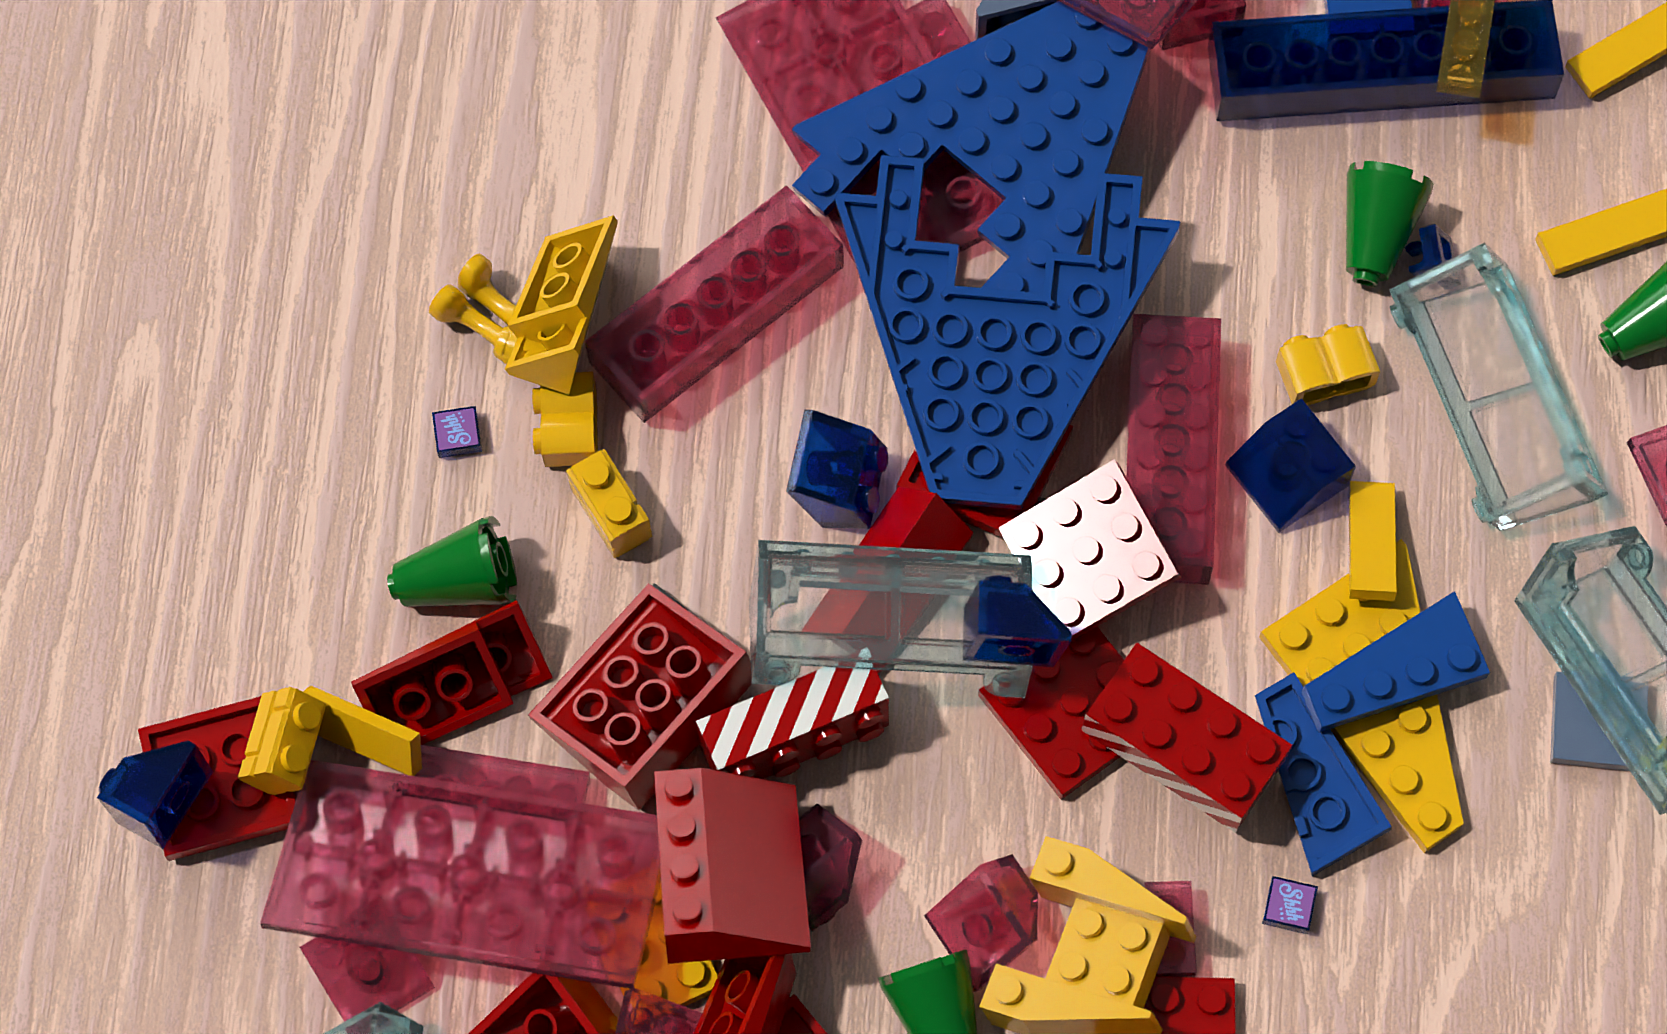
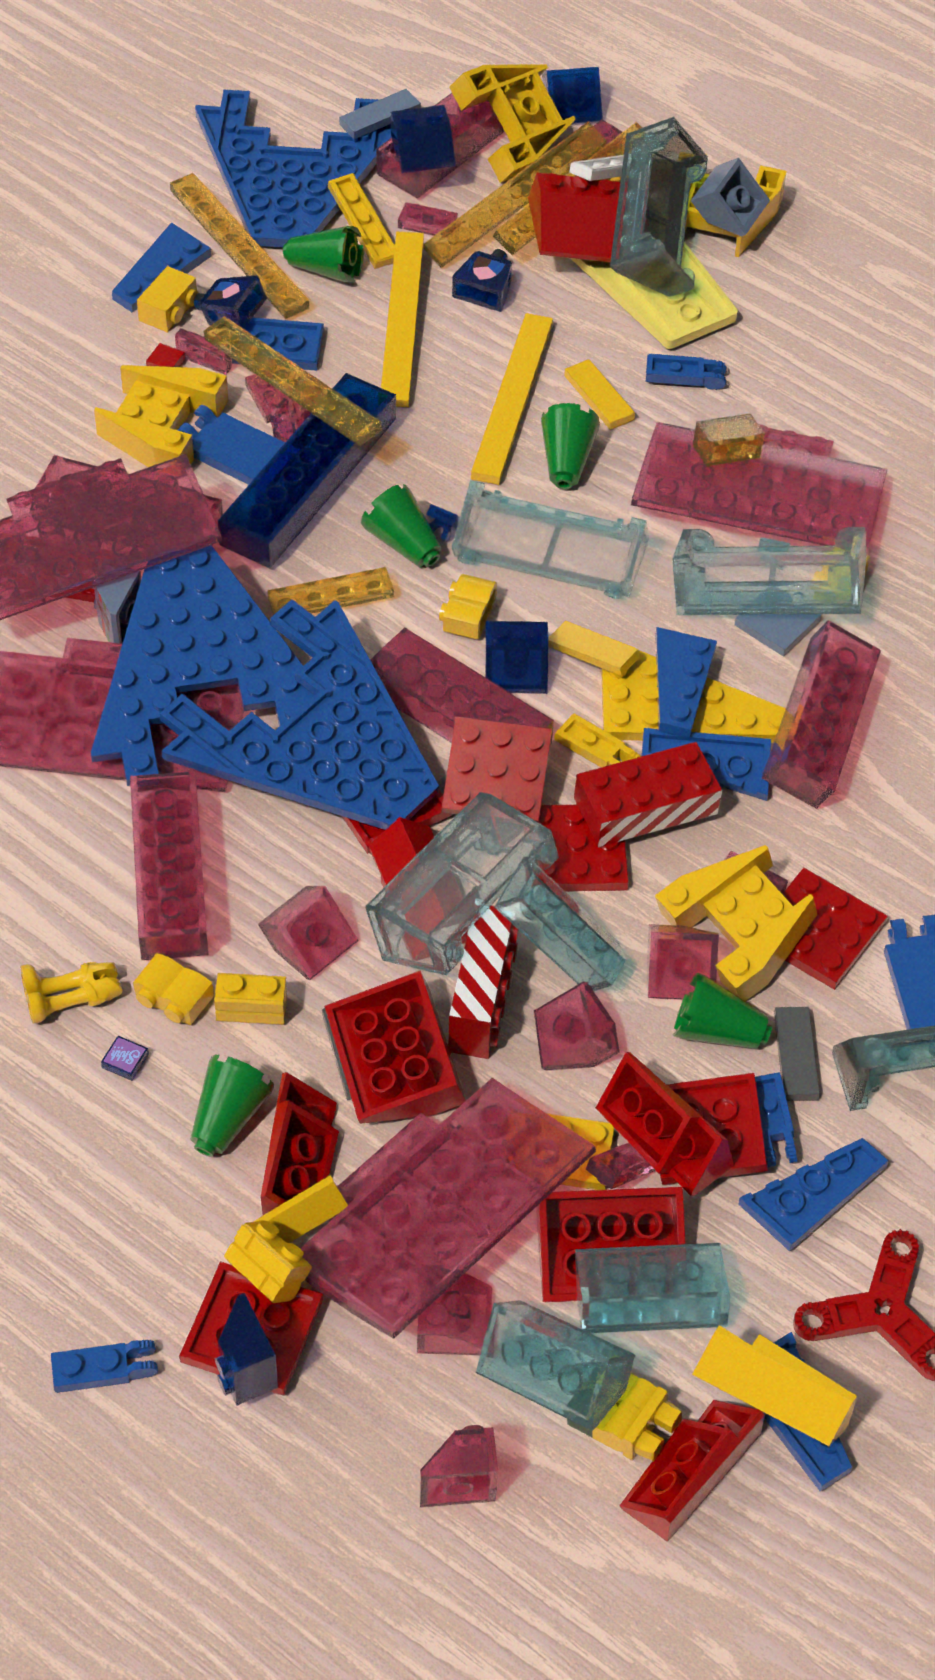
camera: 60 degrees left, 15 degrees down
(85, 660) = (101, 1366): none -> blue hinge
(559, 304) = (101, 936): yellow slope -> none
(729, 866) = (554, 1056): red slope -> none
(738, 500) = (309, 931): none -> clear pink slope
(837, 471) = (339, 864): clear blue slope -> none
(920, 762) = (560, 927): none -> clear light blue slope
(1011, 625) = (528, 810): clear blue slope -> none
(1227, 208) = (345, 589): none -> clear yellow plate
(1234, 634) = (592, 742): none -> yellow hinge
(1289, 905) = (777, 818): tile -> none
(1471, 862) = (821, 714): none -> clear pink brick

